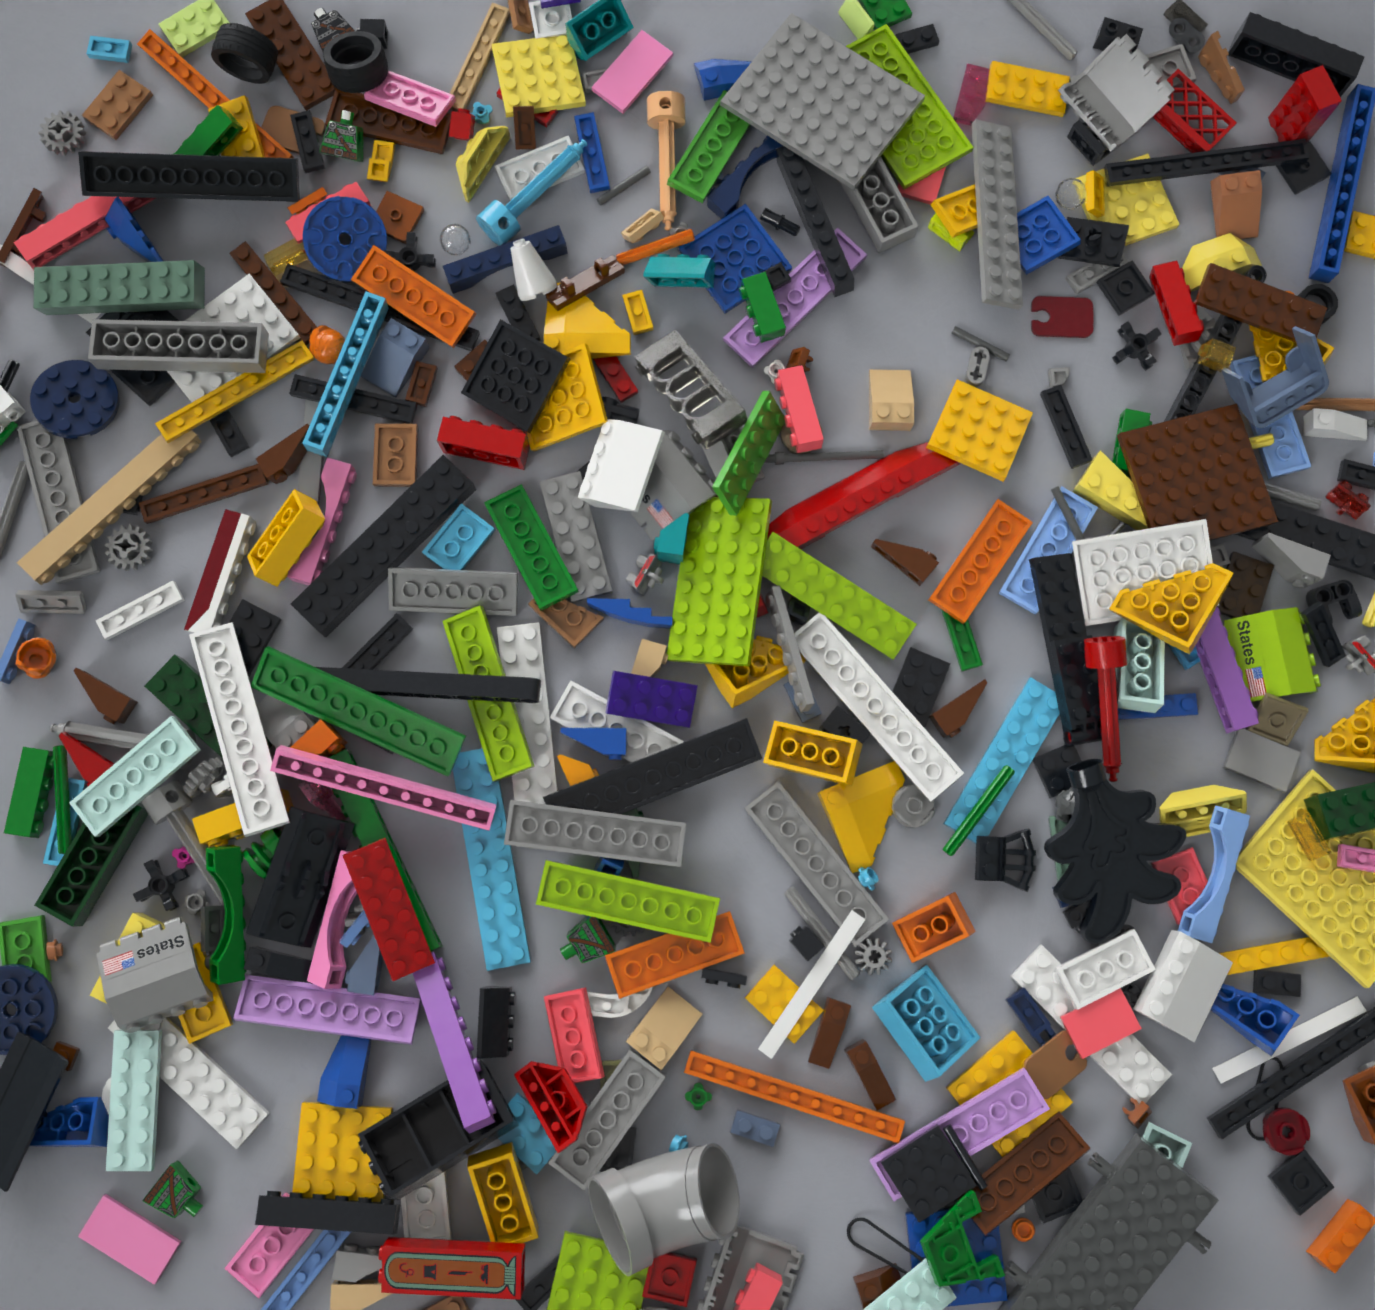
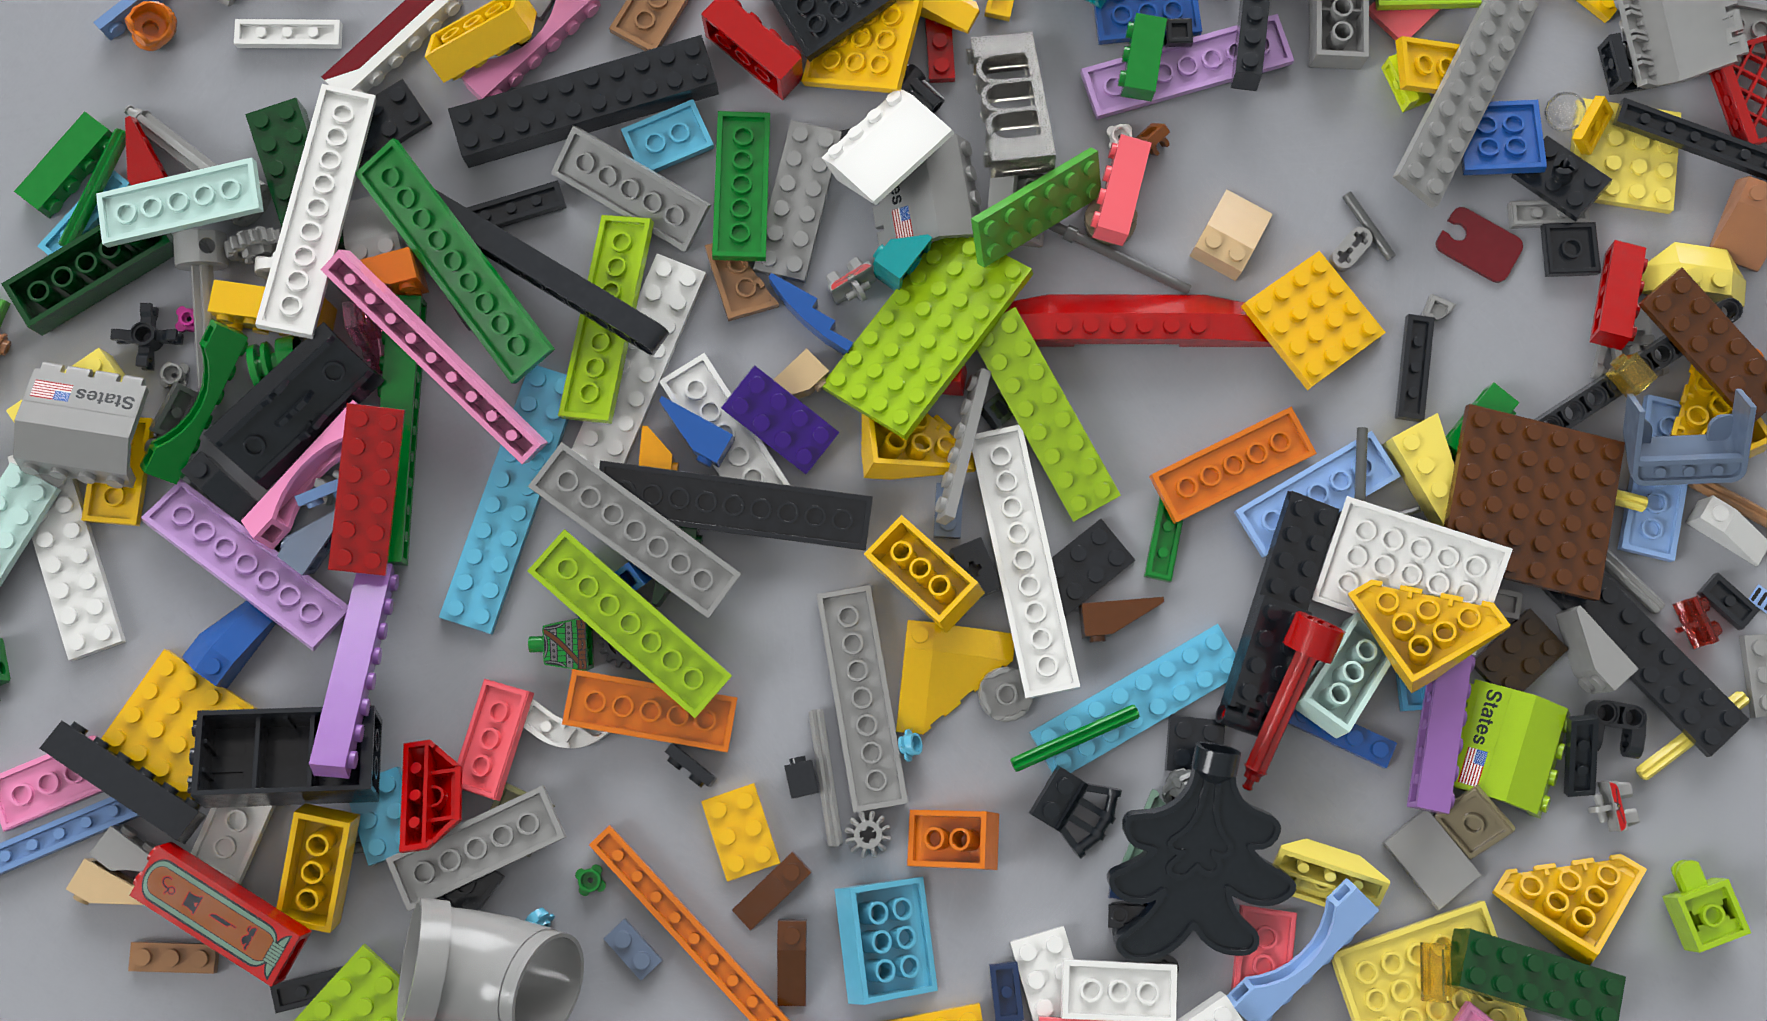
camera: 25 degrees right, 0 degrees up
(107, 700) = (199, 107): reddish brown slope -> none
(495, 1022) = (414, 675): black slope -> none
(664, 1028) = (594, 784): tan slope -> none
(811, 984) = (781, 826): white sticker -> none
(909, 560) = (1153, 422): reddish brown slope -> none
(1127, 332) = (1557, 318): black pin -> none

